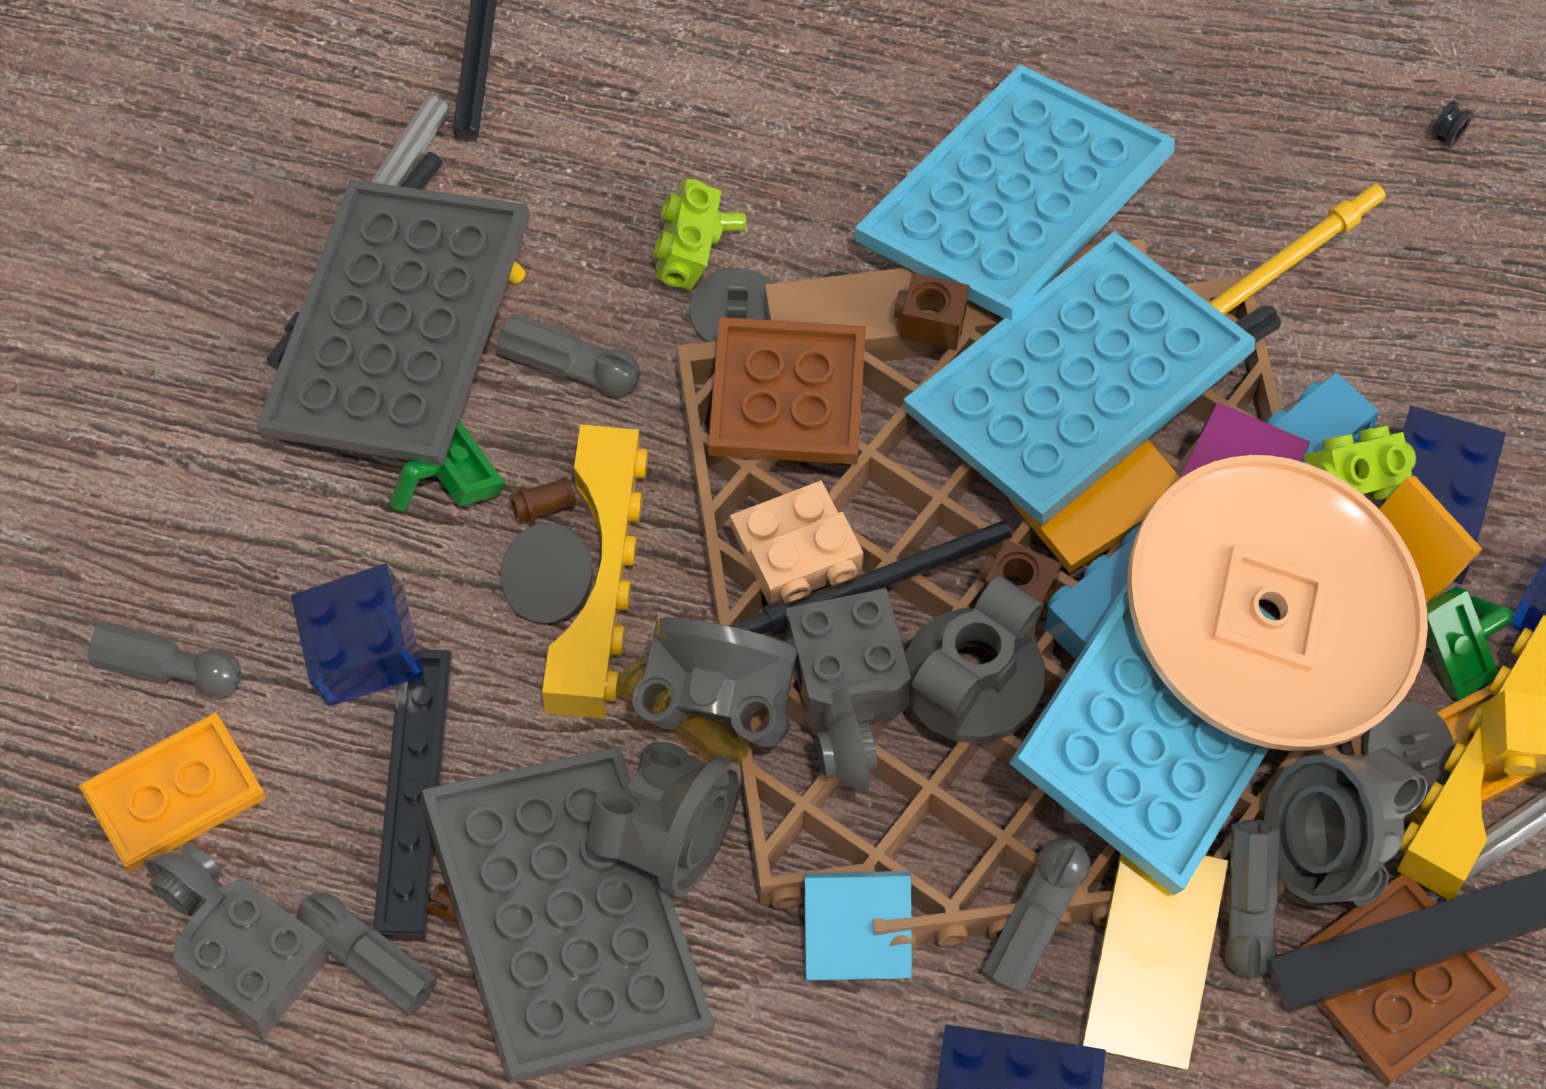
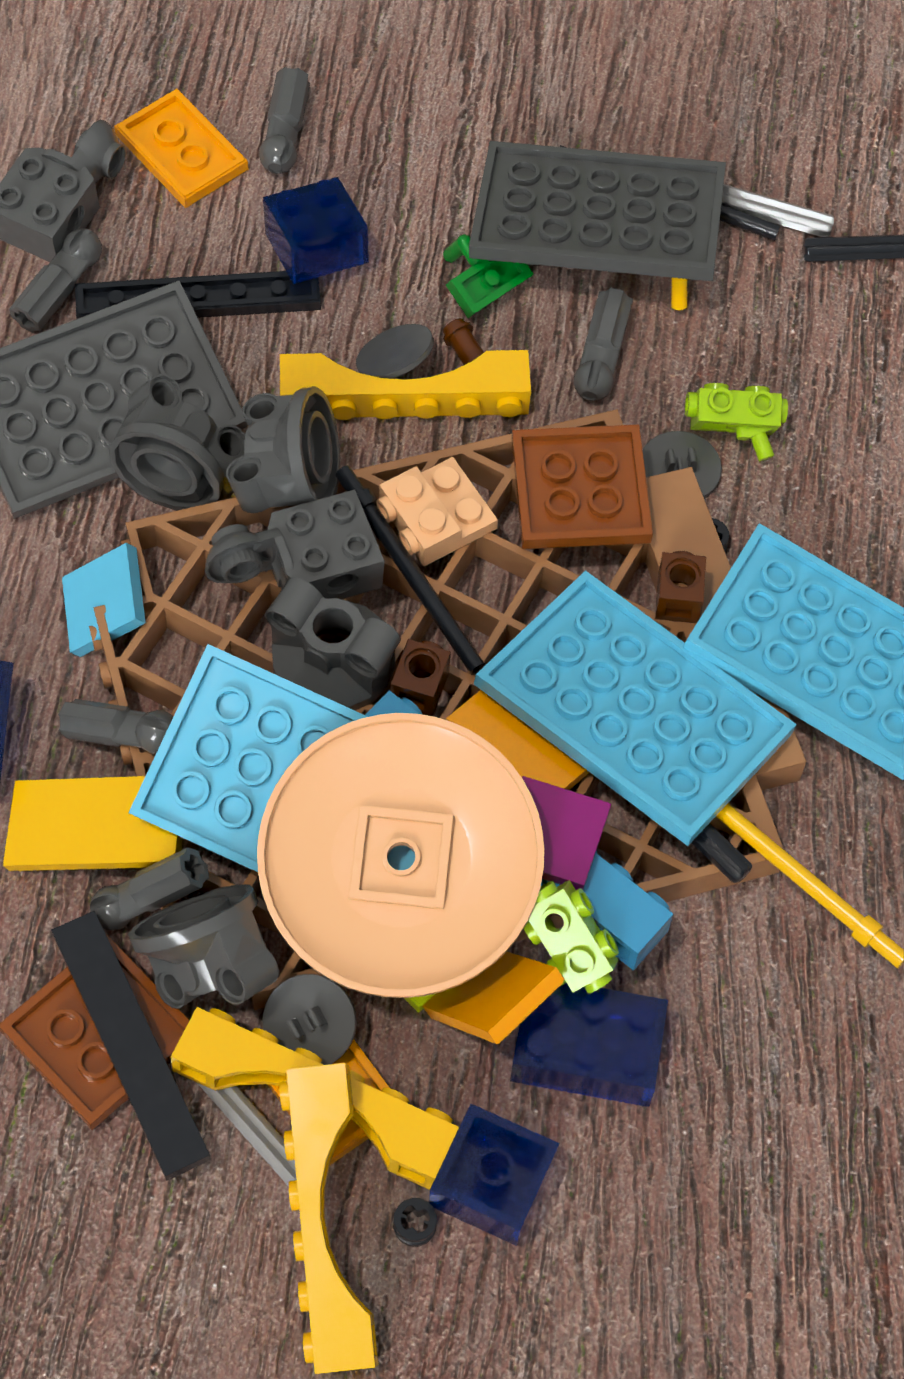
camera: 80 degrees right, 0 degrees up
(1460, 639) = (430, 1063): green plate -> none

